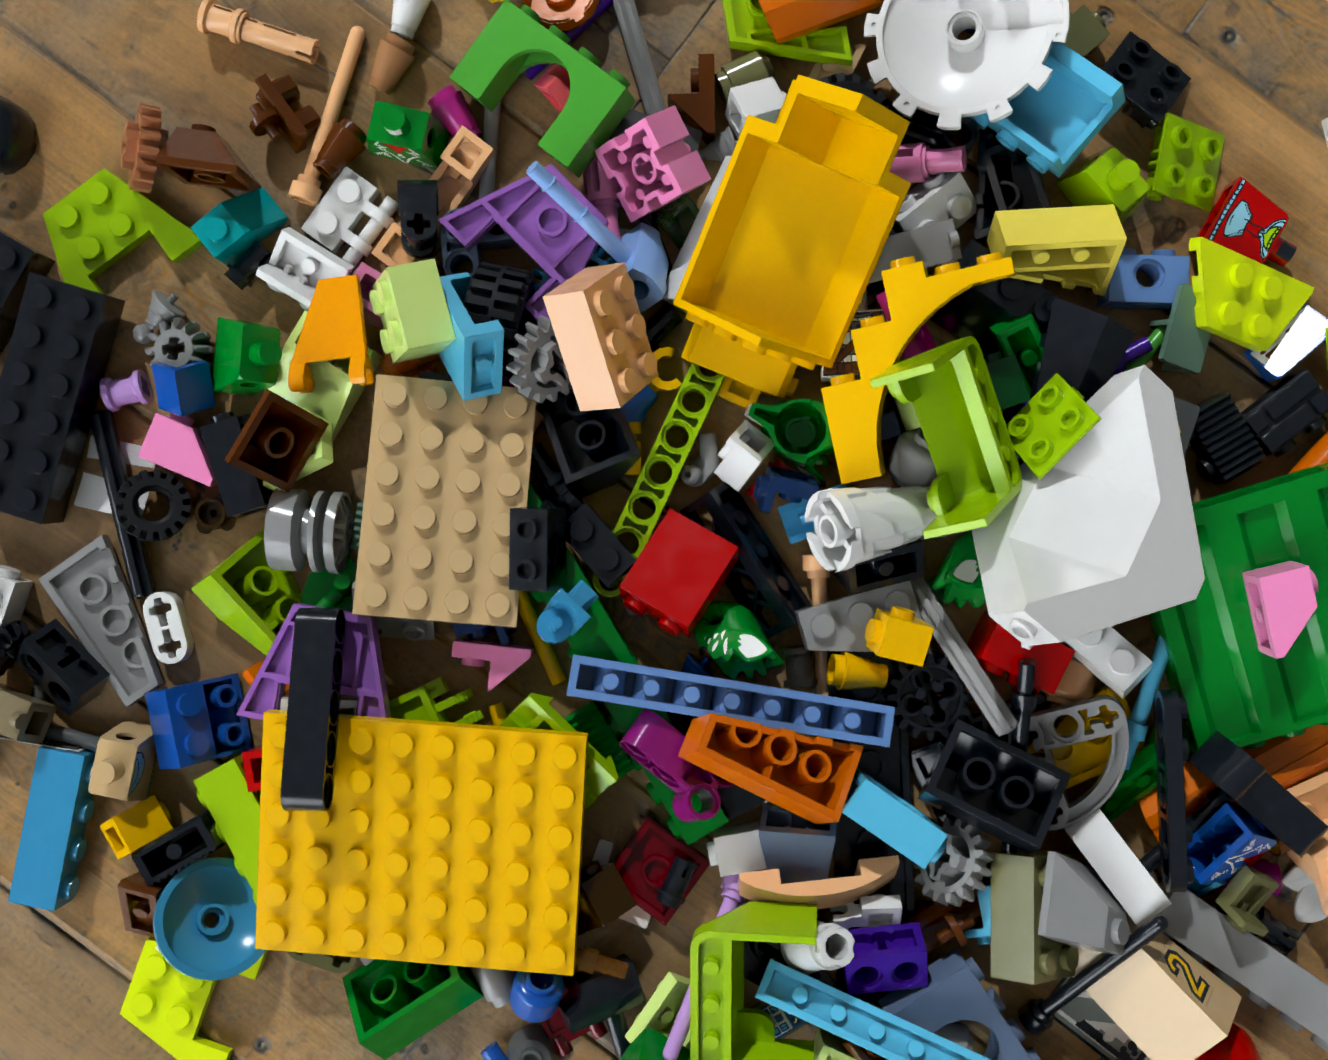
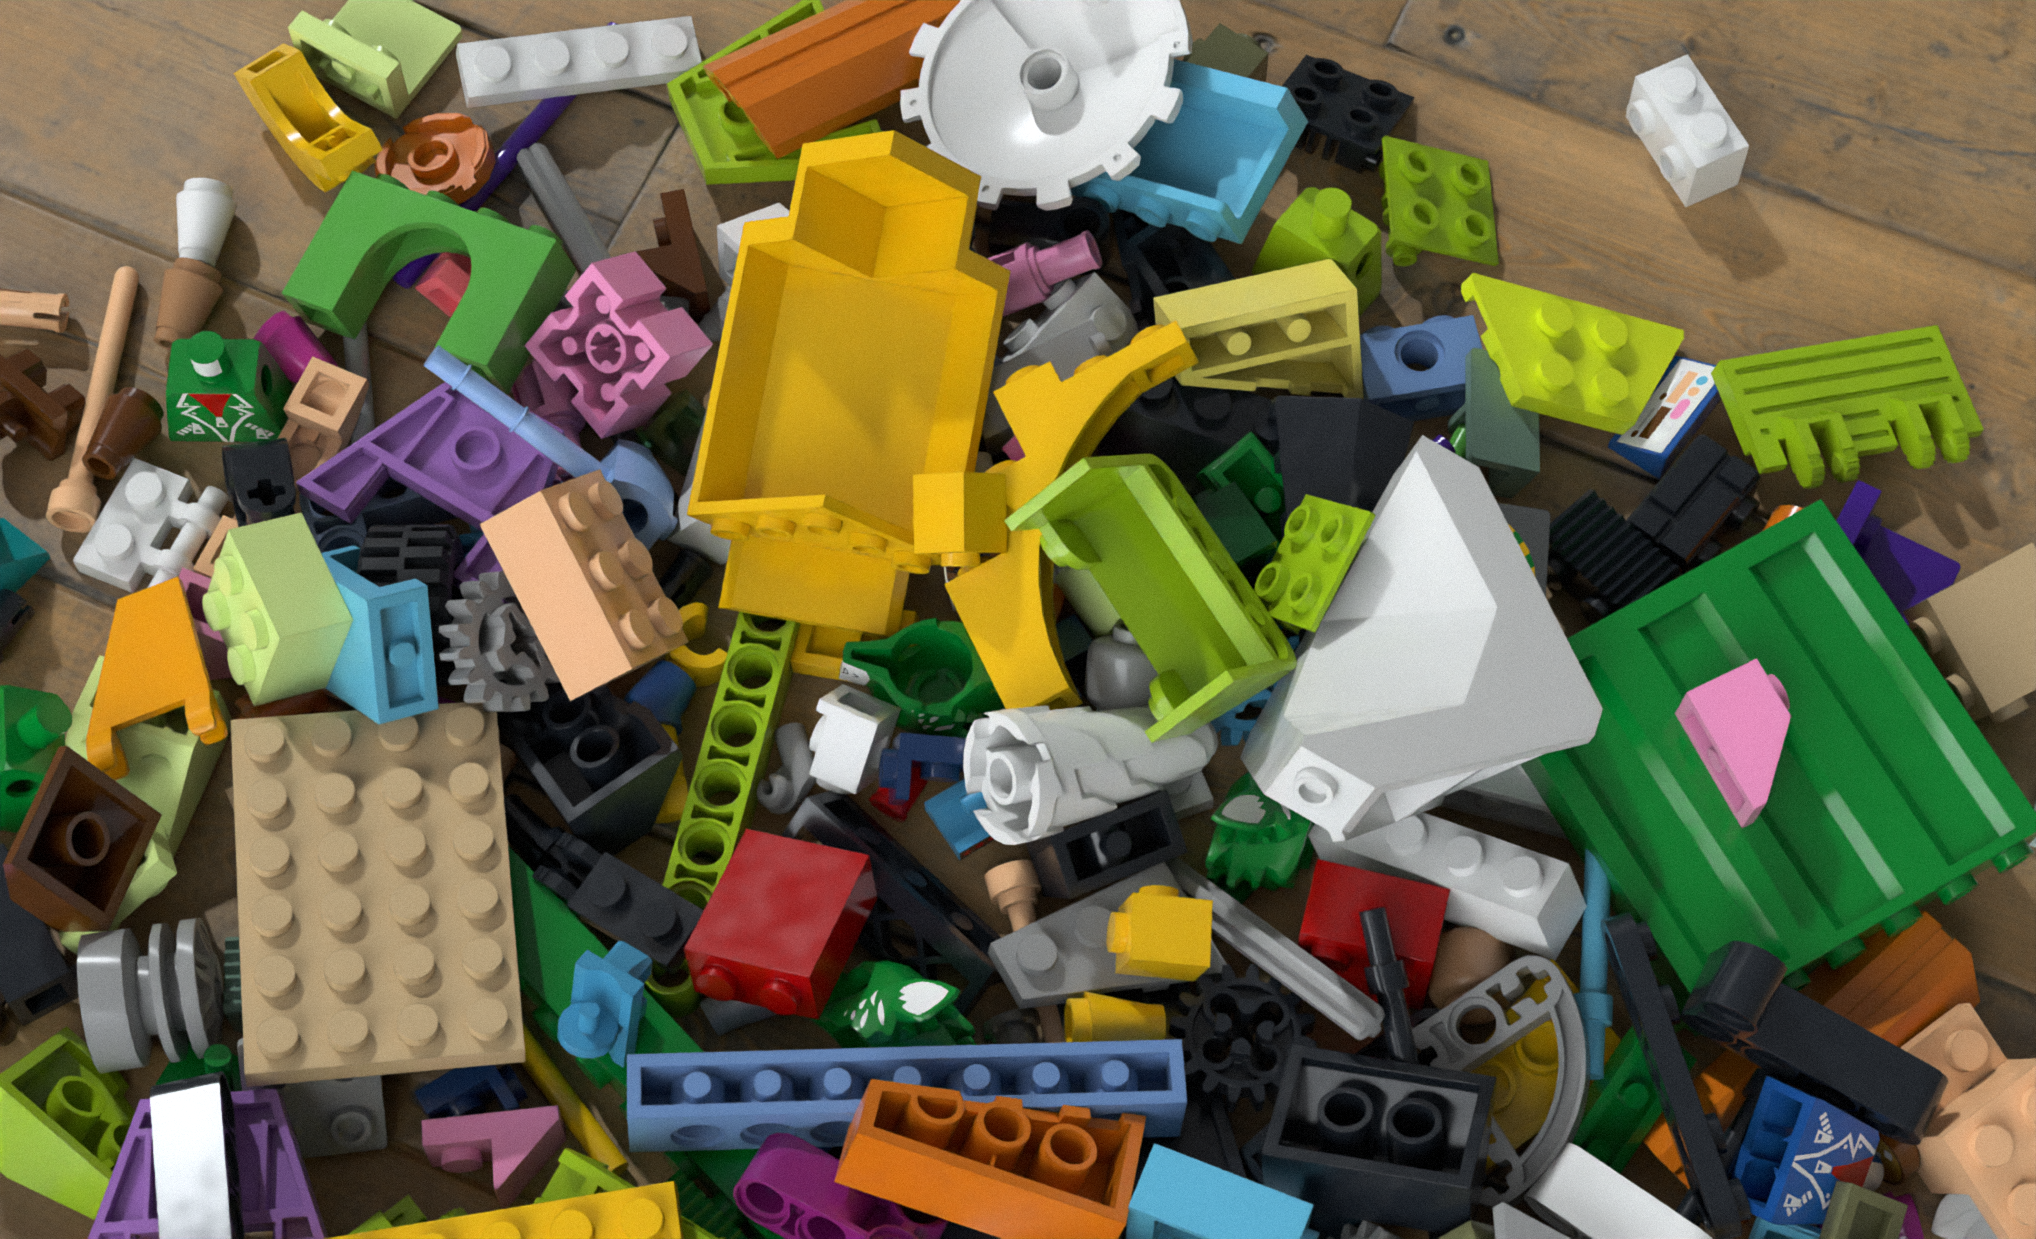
camera: 10 degrees left, 25 degrees down
(298, 266) = (72, 611): white bracket -> none
(537, 548) = (536, 919): black brick -> none
(742, 71) = (732, 203): olive brick -> none
(841, 353) = (959, 516): none -> yellow brick
(1248, 224) = (1559, 258): red torso -> none

